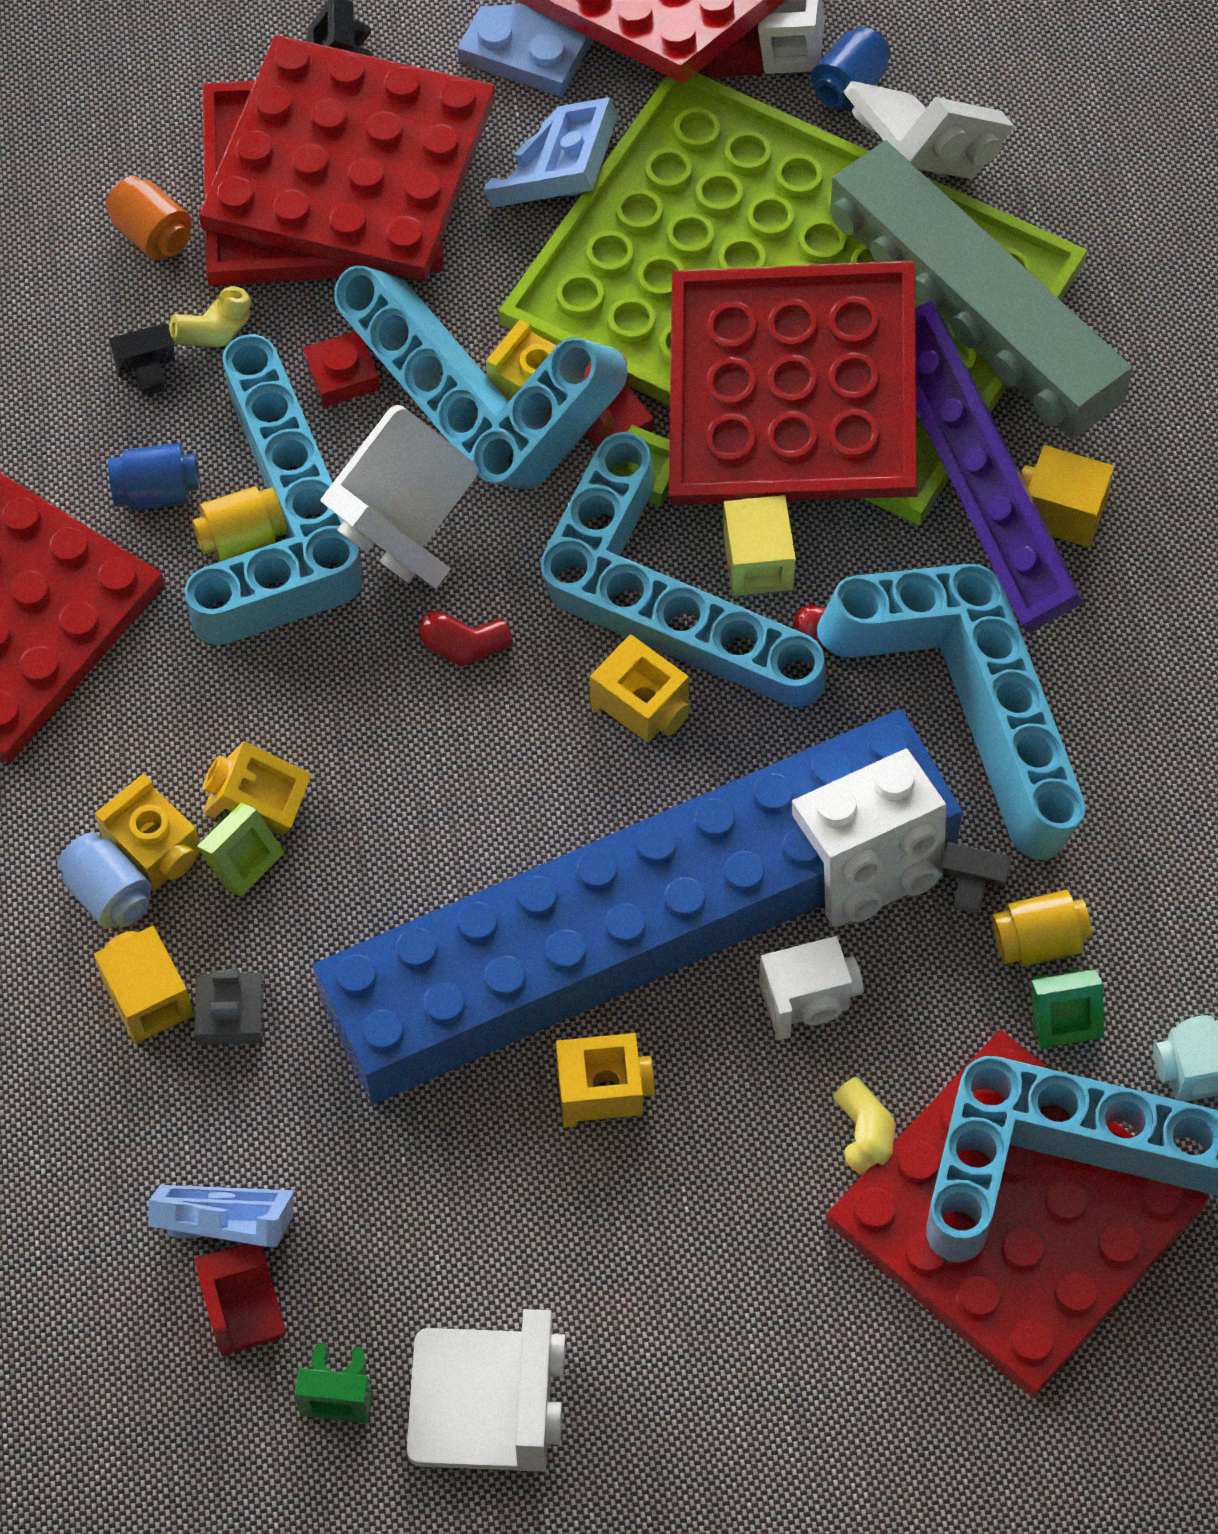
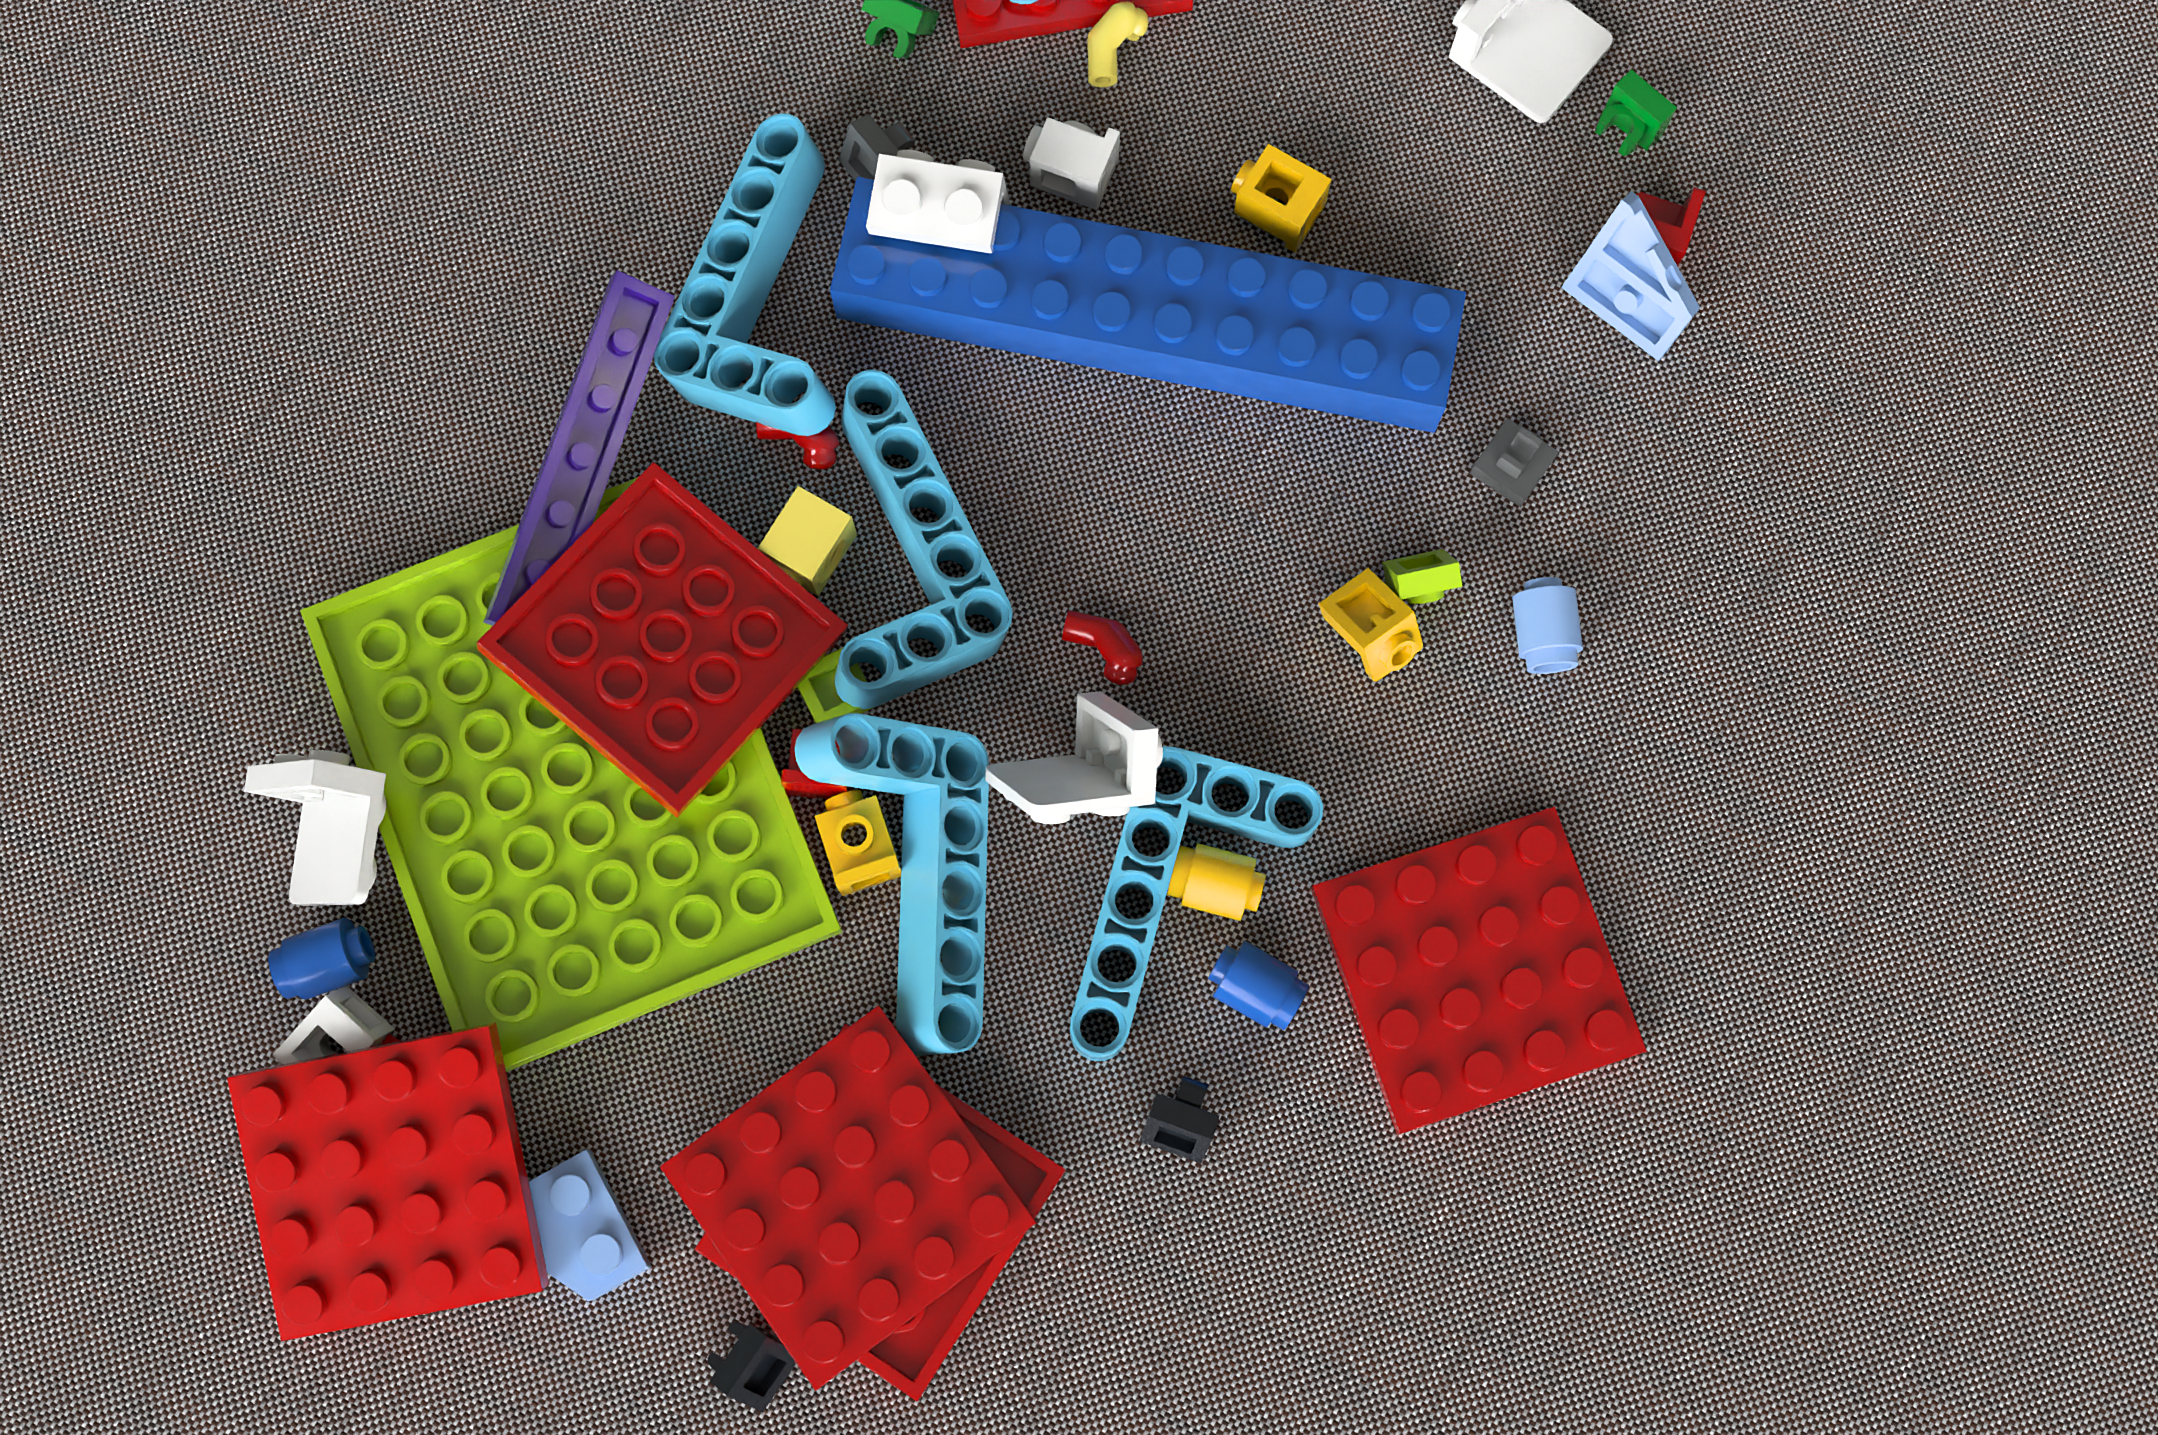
camera: 145 degrees left, 15 degrees up
(129, 824) = (1478, 662): yellow brick -> none
(143, 983) = (1573, 516): yellow brick -> none
(148, 217) = (1072, 1279): orange brick -> none
(217, 325) = (1089, 1117): light yellow arm -> none
(341, 368) = (1014, 988): red plate -> none
(560, 157) = (652, 1062): light blue wing -> none
(637, 674) = (1014, 505): yellow brick -> none
(981, 291) = (434, 620): sand green brick -> none
(1041, 929) = (865, 83): yellow brick -> none
(1069, 493) = (524, 401): yellow brick -> none

